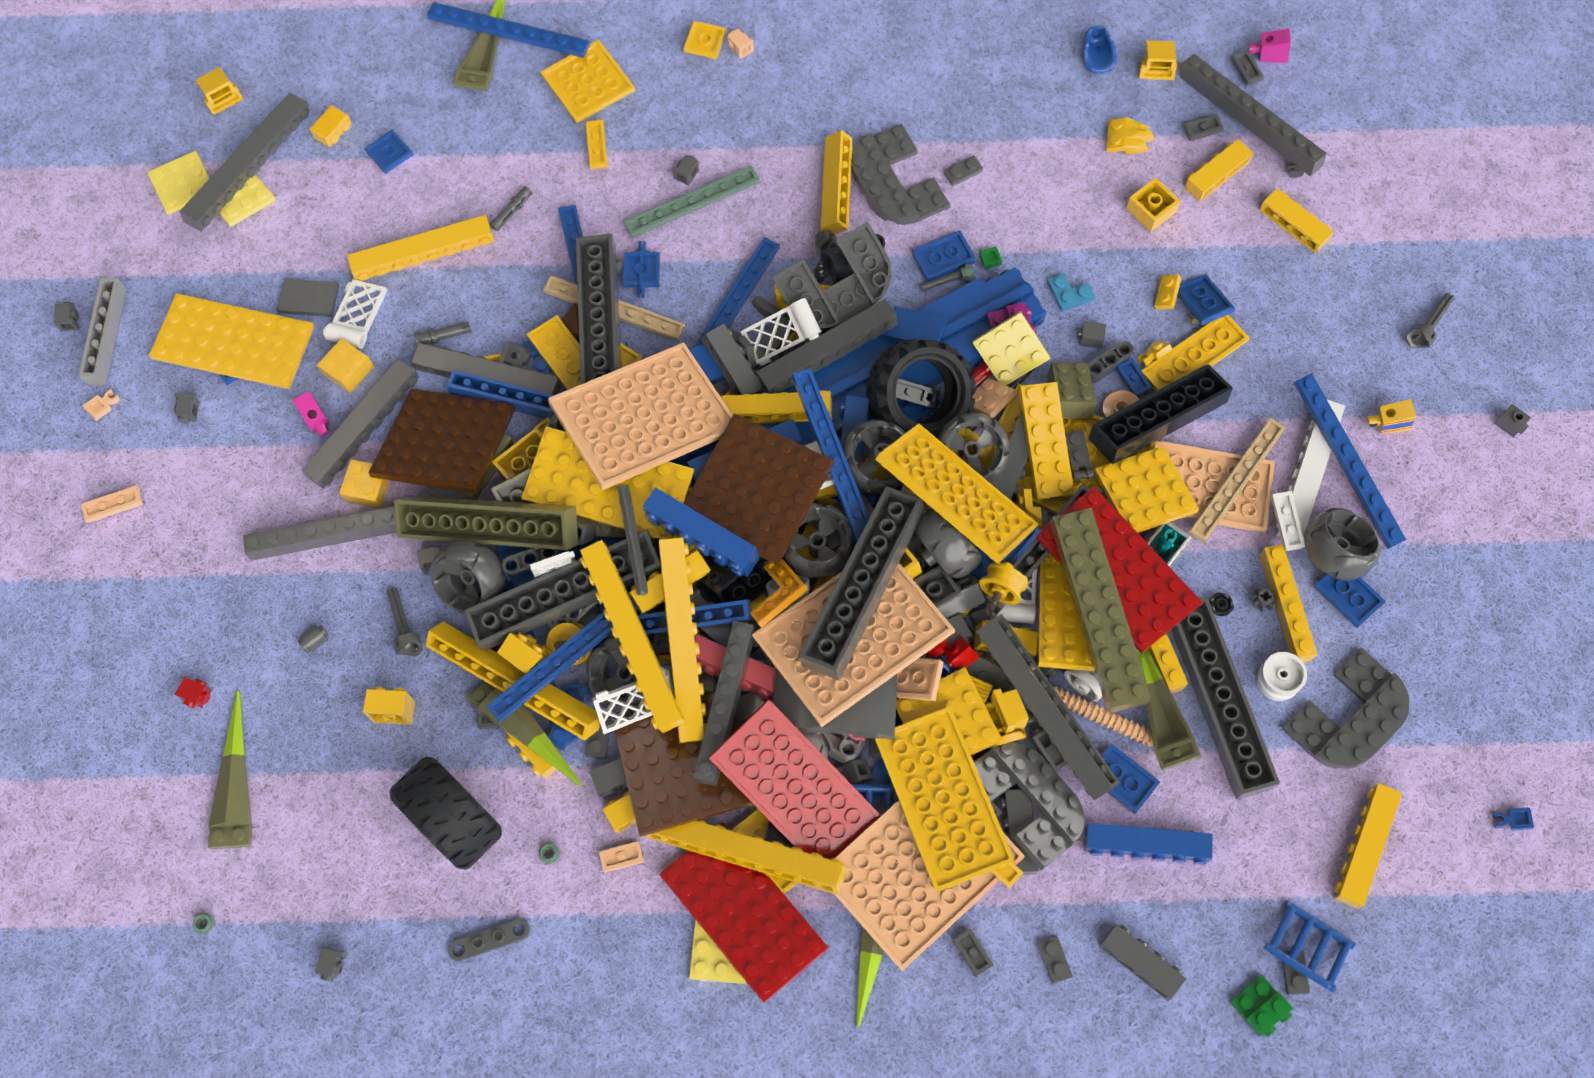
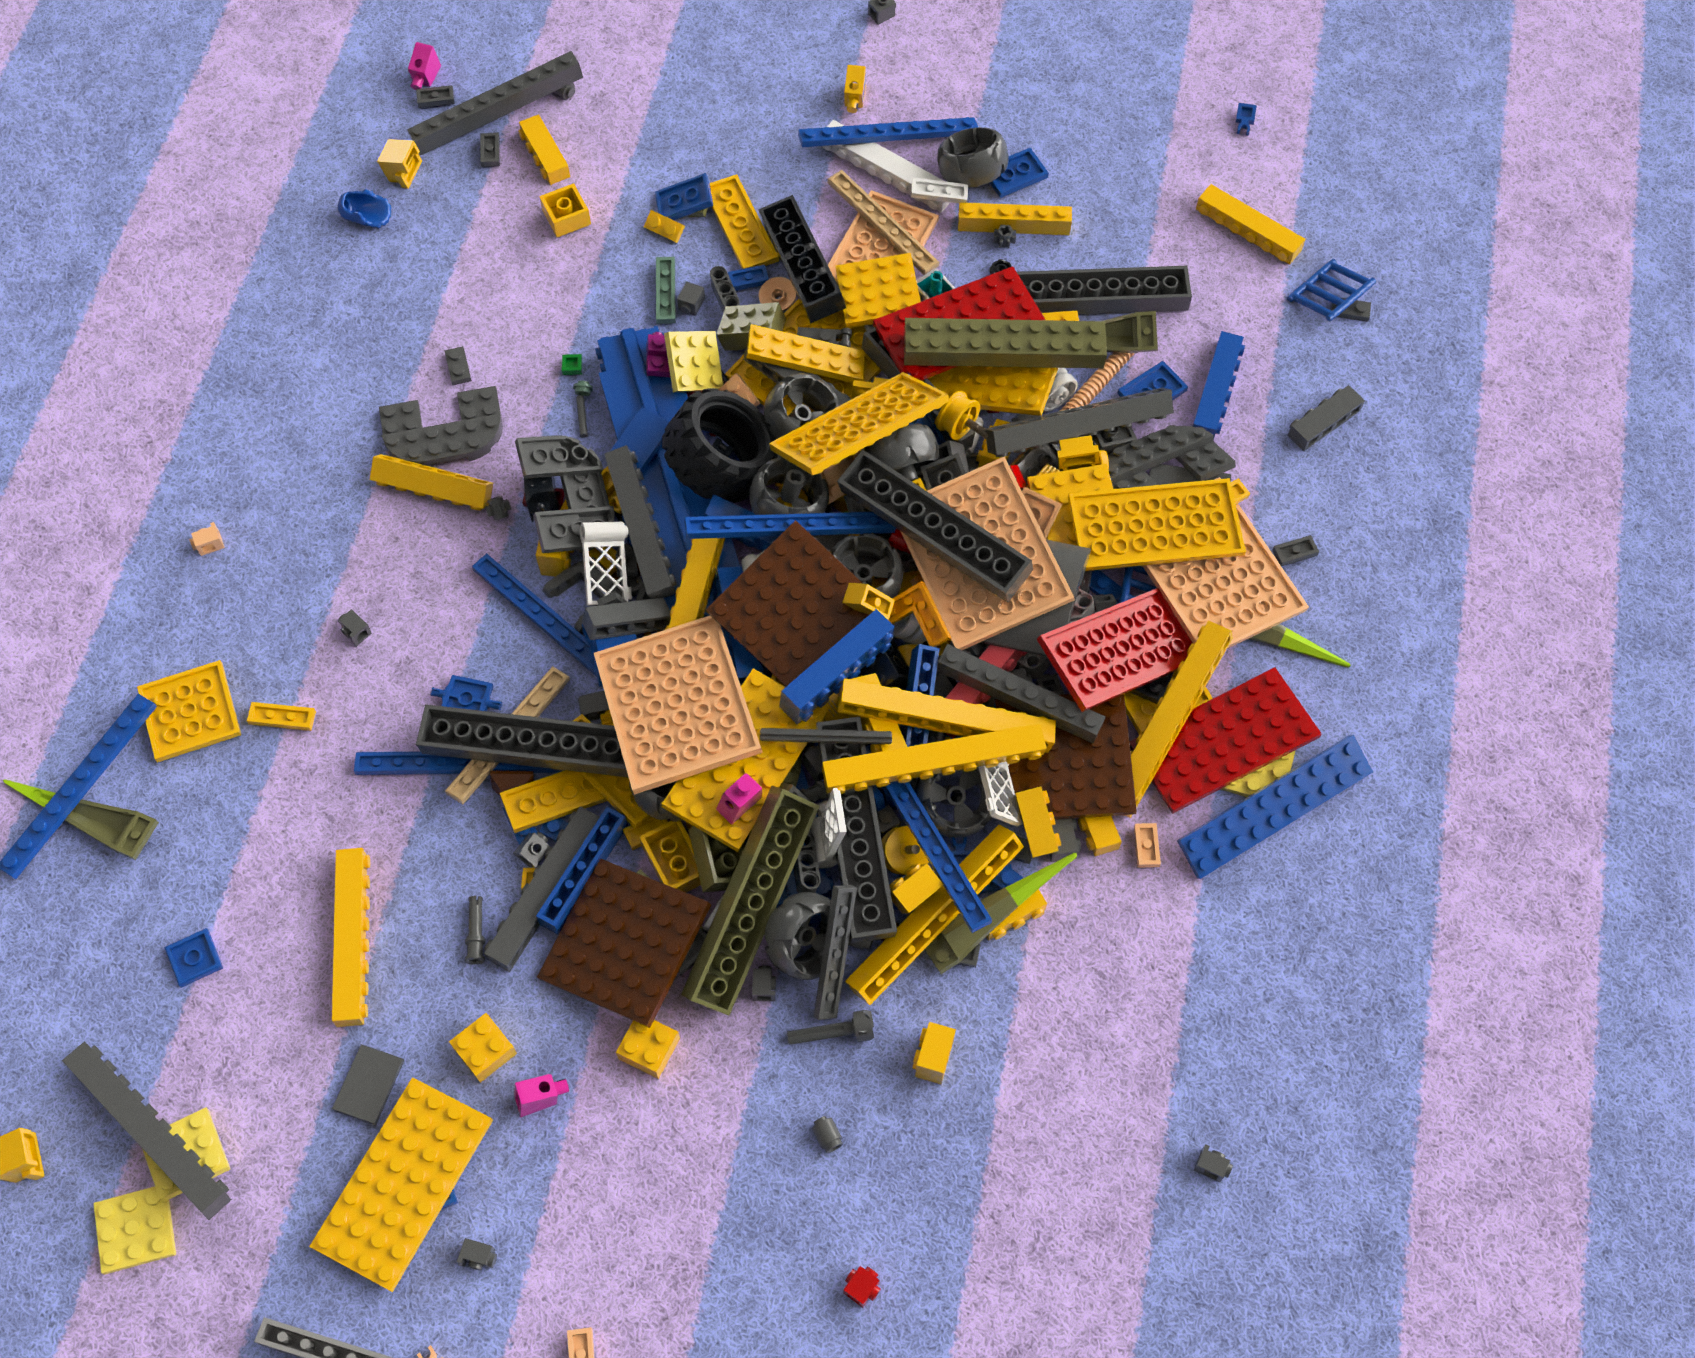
camera: 80 degrees left, 5 degrees down
(199, 919) = (1149, 1307): sand green plate -> none
(231, 812) = (1014, 1258): olive plate -> none
(320, 533) = (697, 1105): dark grey brick -> none
(330, 126) = (129, 1020): yellow brick -> none
(351, 333) = (432, 1047): white piece -> none
(360, 424) = (566, 1042): dark grey brick -> none
(445, 813) = (1083, 992): black tyre -> none
(454, 601) = (835, 952): none -> dark grey plate
(488, 940) = (1211, 994): dark grey plate -> none
(515, 204) = (329, 821): dark grey pin -> none
(546, 847) = (1132, 912): sand green plate -> none
(559, 484) = (742, 796): none -> dark pink torso
(608, 746) = (1038, 821): none -> yellow brick
(685, 972) = (1274, 806): none -> blue plate
(691, 202) = (397, 632): sand green plate -> none
(705, 40) = (186, 575): yellow plate -> none
(769, 542) = (867, 599): none -> yellow slope
(943, 255) = (554, 405): blue plate -> none
(1054, 960) = (1311, 487): dark grey plate -> none
(1069, 297) = (637, 312): dark azure plate -> none
(1096, 311) = (665, 290): none -> sand green plate
(1128, 136) = (474, 213): yellow plate -> none
(1155, 351) = (725, 252): yellow plate -> none
(1262, 1006) = (1377, 340): green plate -> none
(1281, 676) = (1084, 241): white wheel -> none
(1296, 220) = (623, 104): yellow brick -> none
(1367, 730) = (1144, 192): dark grey plate -> none
(1424, 334) = (776, 45): dark grey piece -> none

